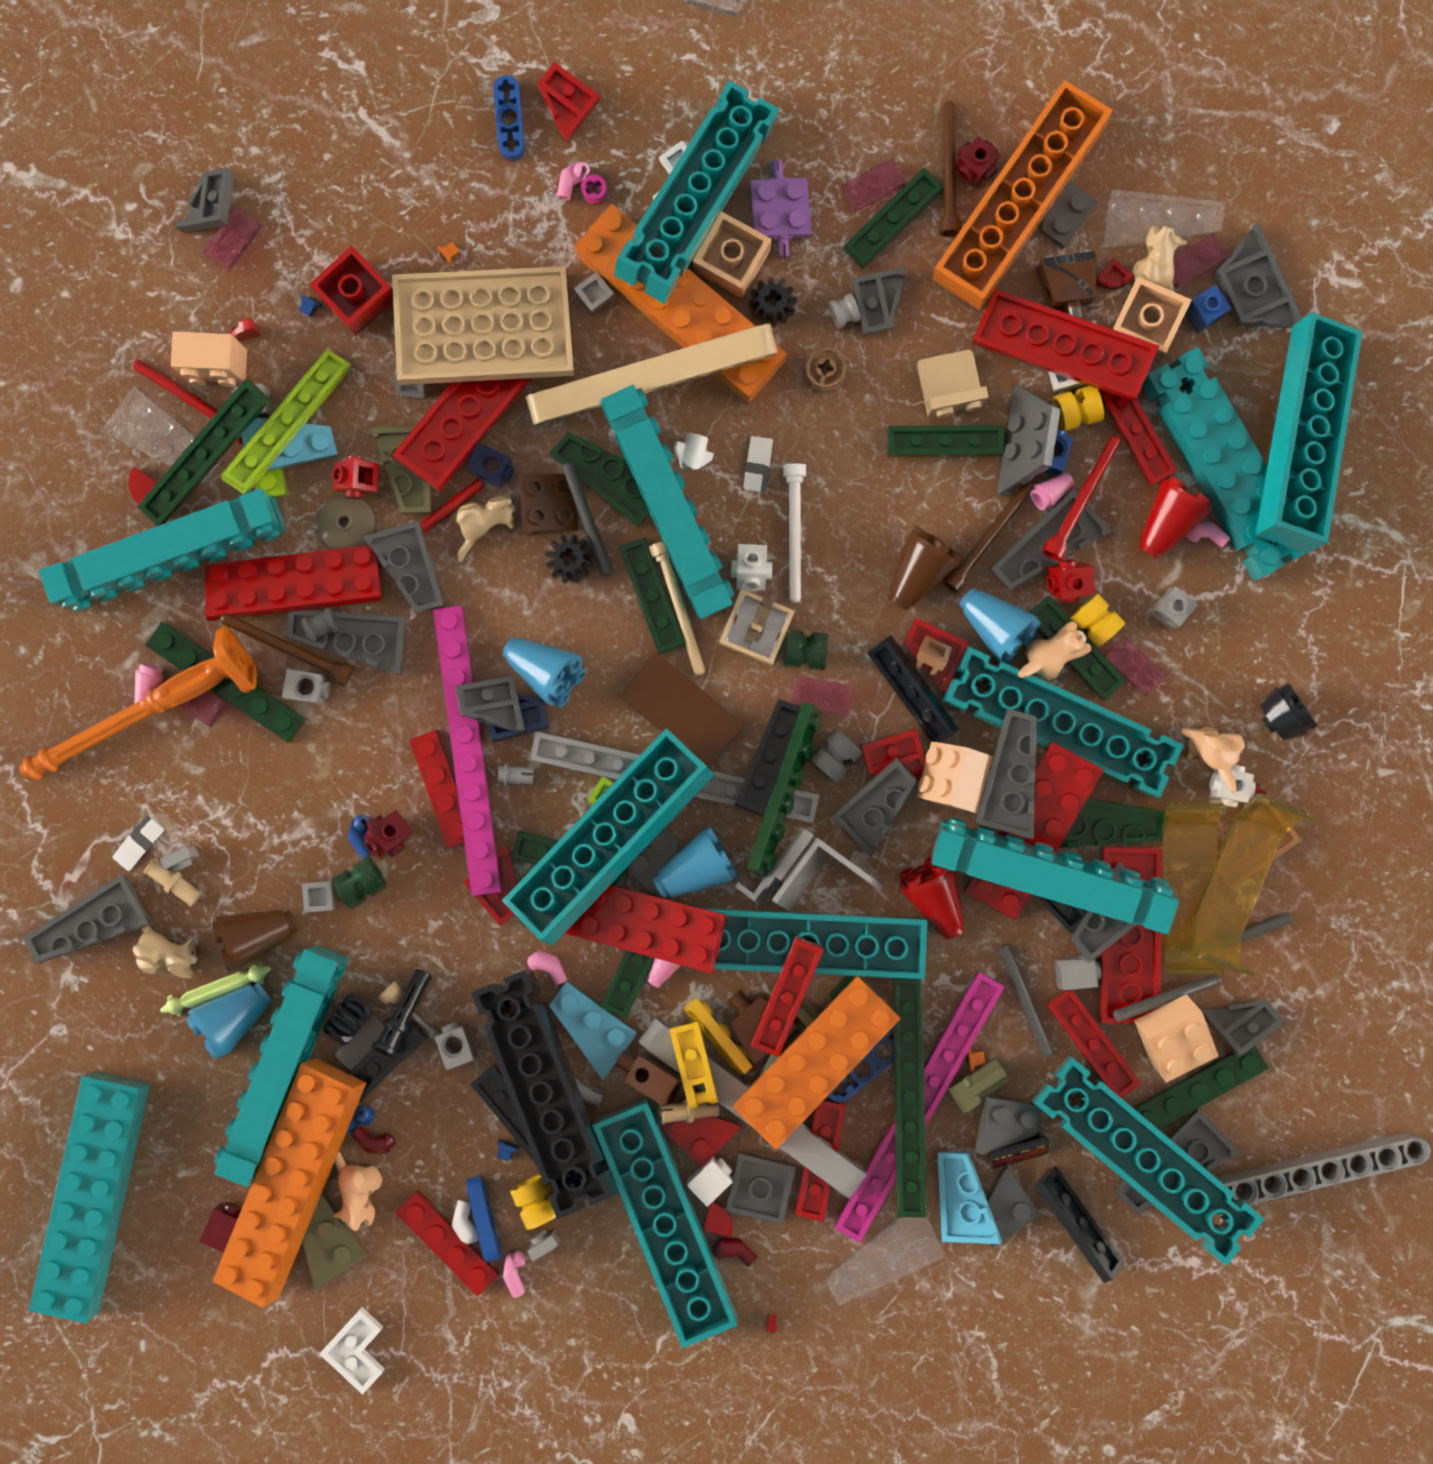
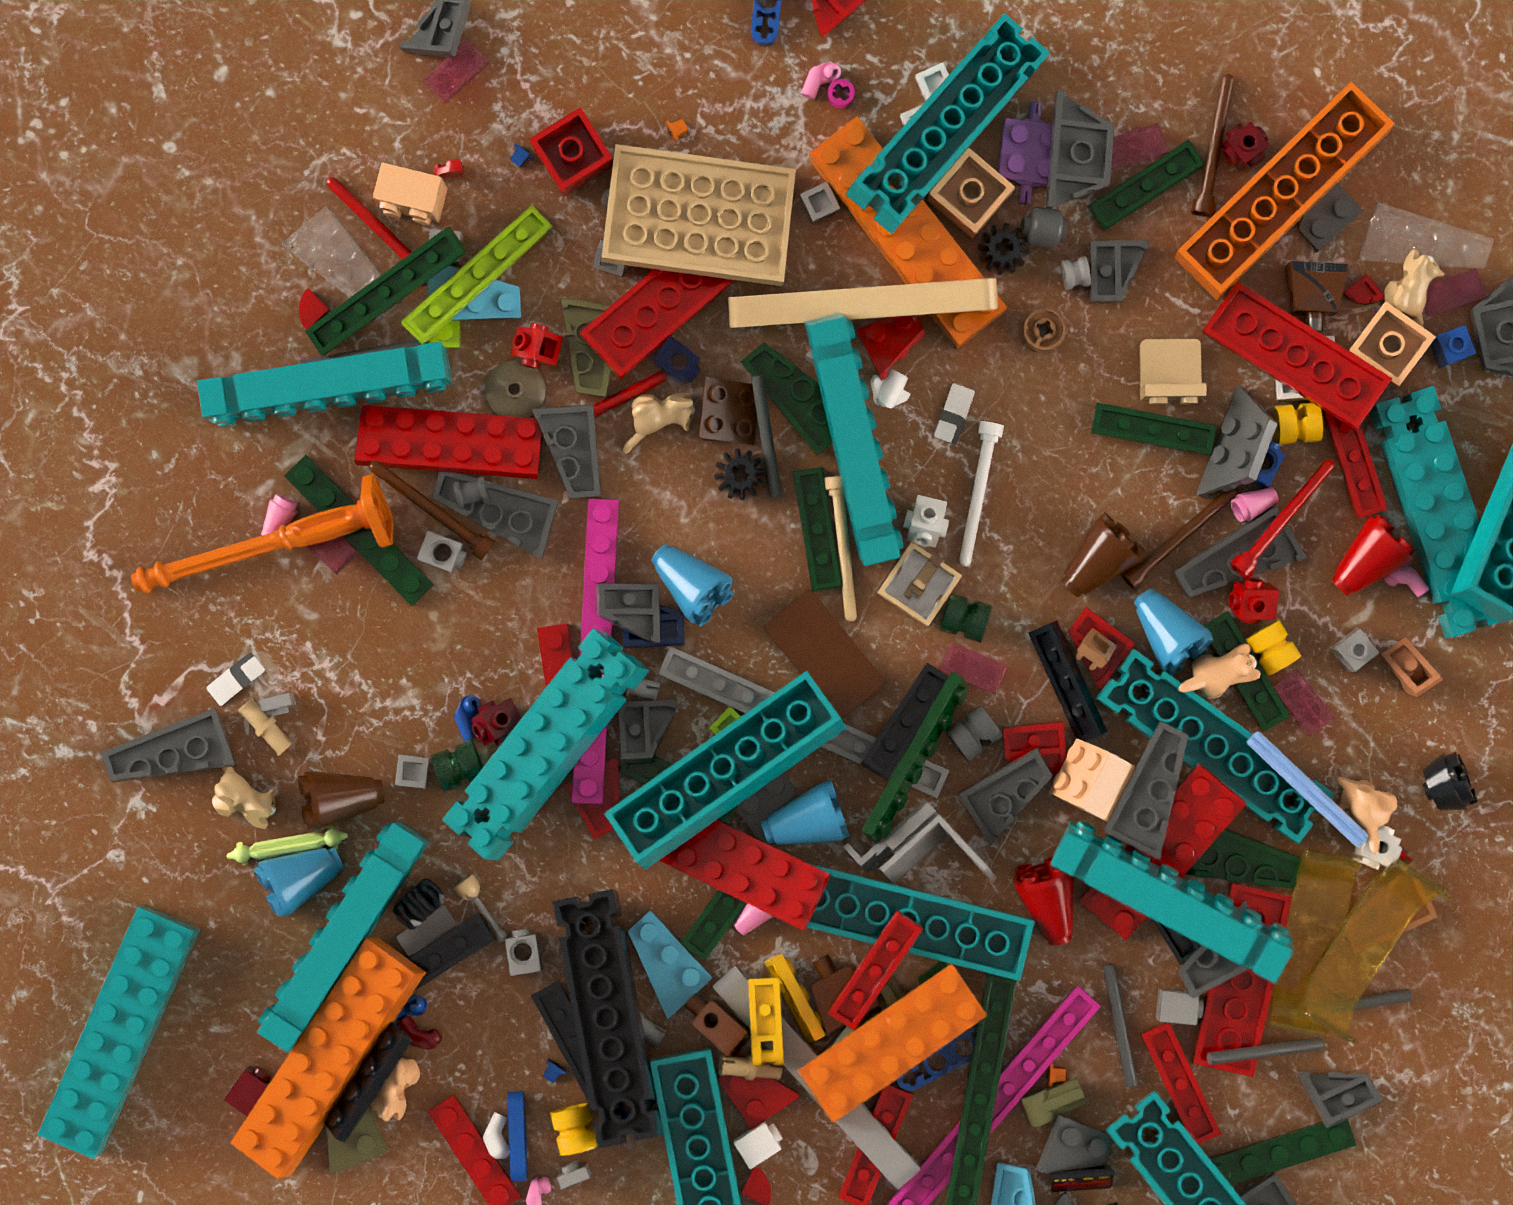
camera: 10 degrees right, 0 degrees up
(331, 1197) = (367, 1081): none -> black plate
(396, 1026) = (468, 920): black pin -> none
(435, 847) = (545, 745): none -> teal brick
(526, 813) = (643, 728): none -> dark grey wing
(549, 963) = (634, 887): bright pink arm -> none
(684, 406) = (890, 340): none -> red wing
(760, 1188) = (808, 1162): dark grey plate -> none
(806, 274) = (1044, 227): none -> dark grey head
(824, 197) = (1078, 152): none -> dark grey wing
(1158, 745) = (1307, 789): none -> light blue axle
(1176, 1038) = (1266, 1094): light nougat brick -> none
(1229, 613) = (1411, 668): none -> nougat slope

